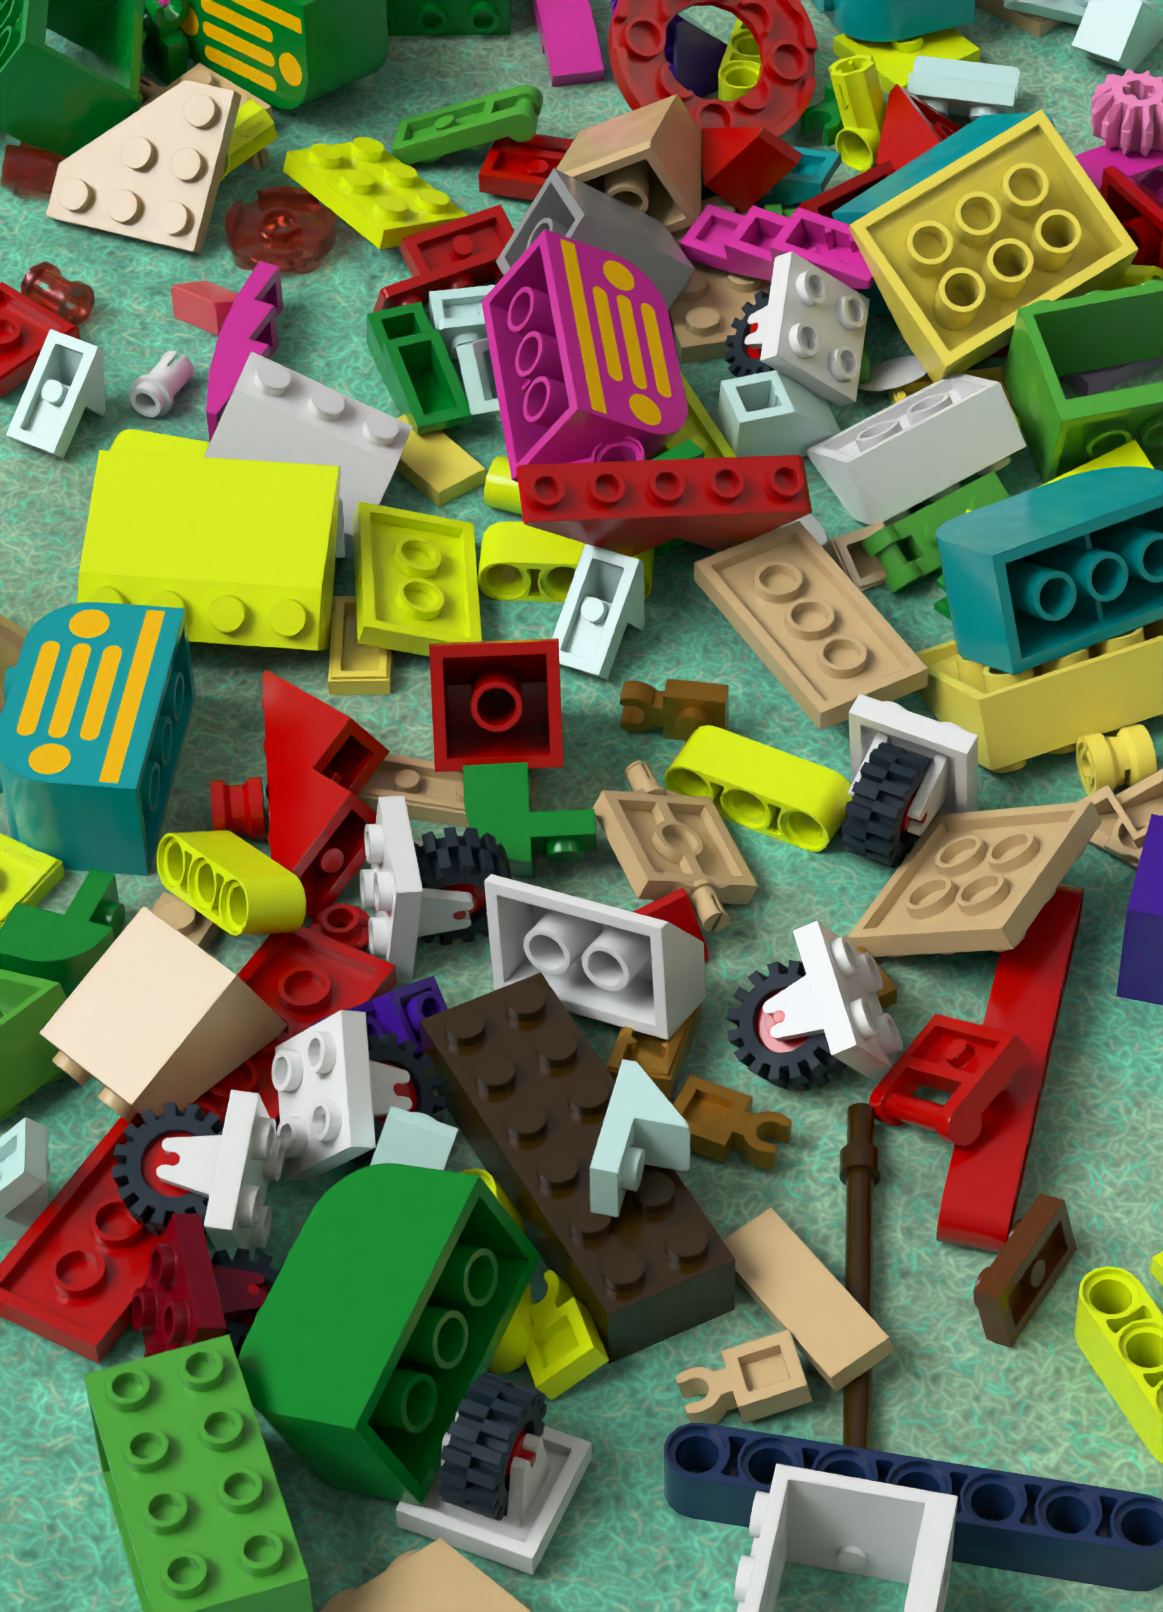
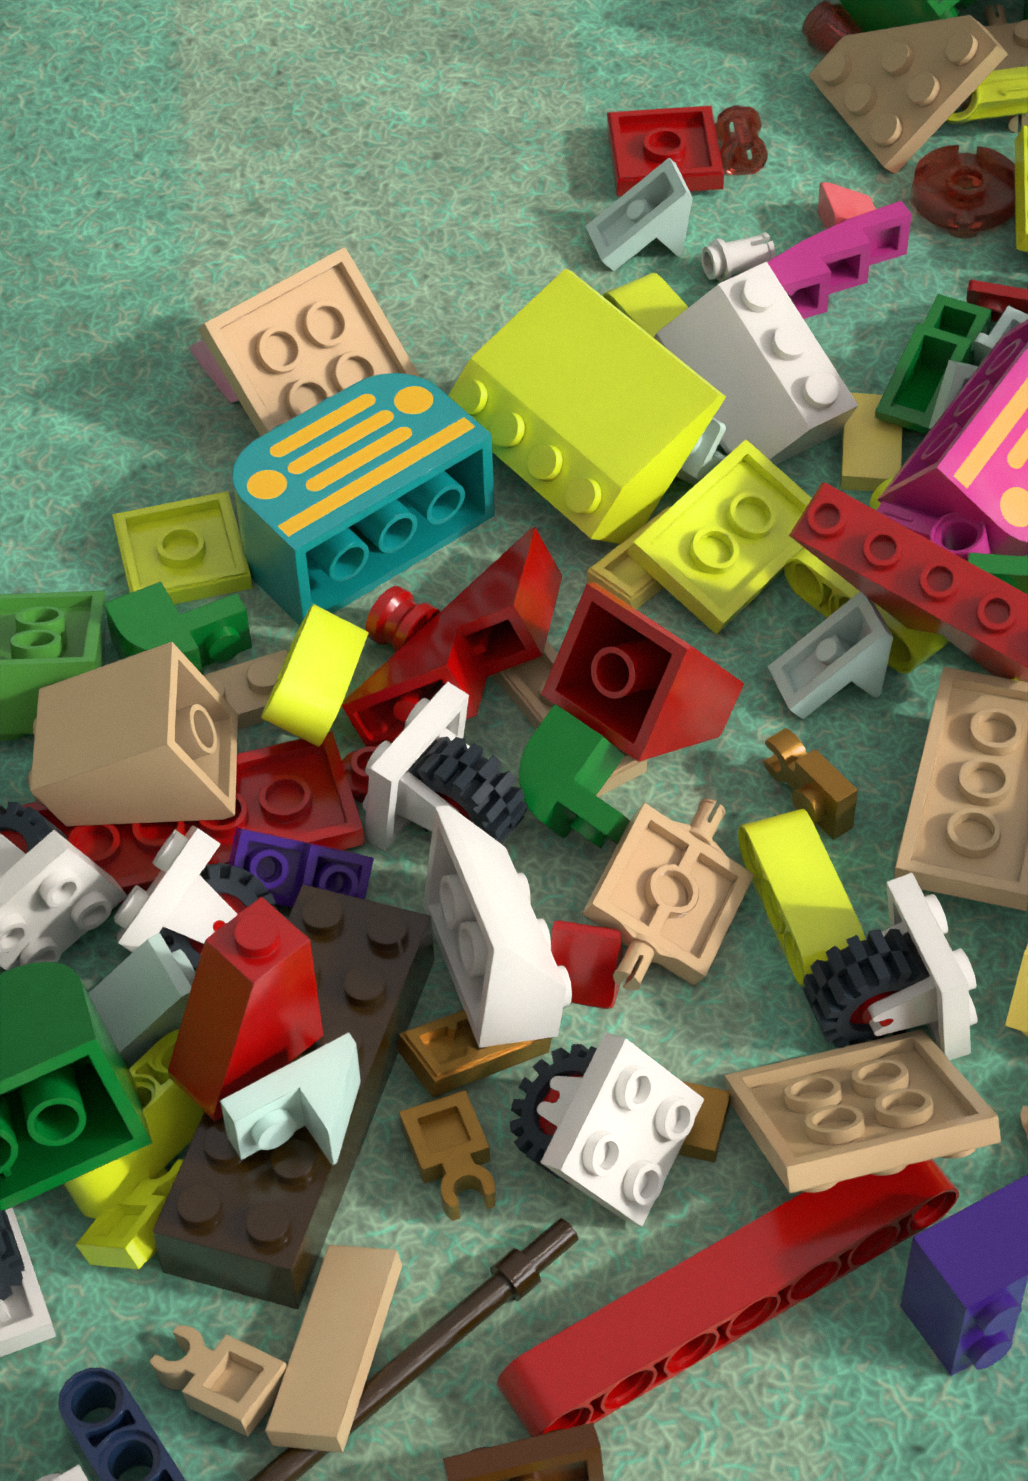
camera: 45 degrees right, 5 degrees up
(533, 1098) = (247, 1007): none -> red slope
(957, 1059) = (656, 1266): red plate -> none

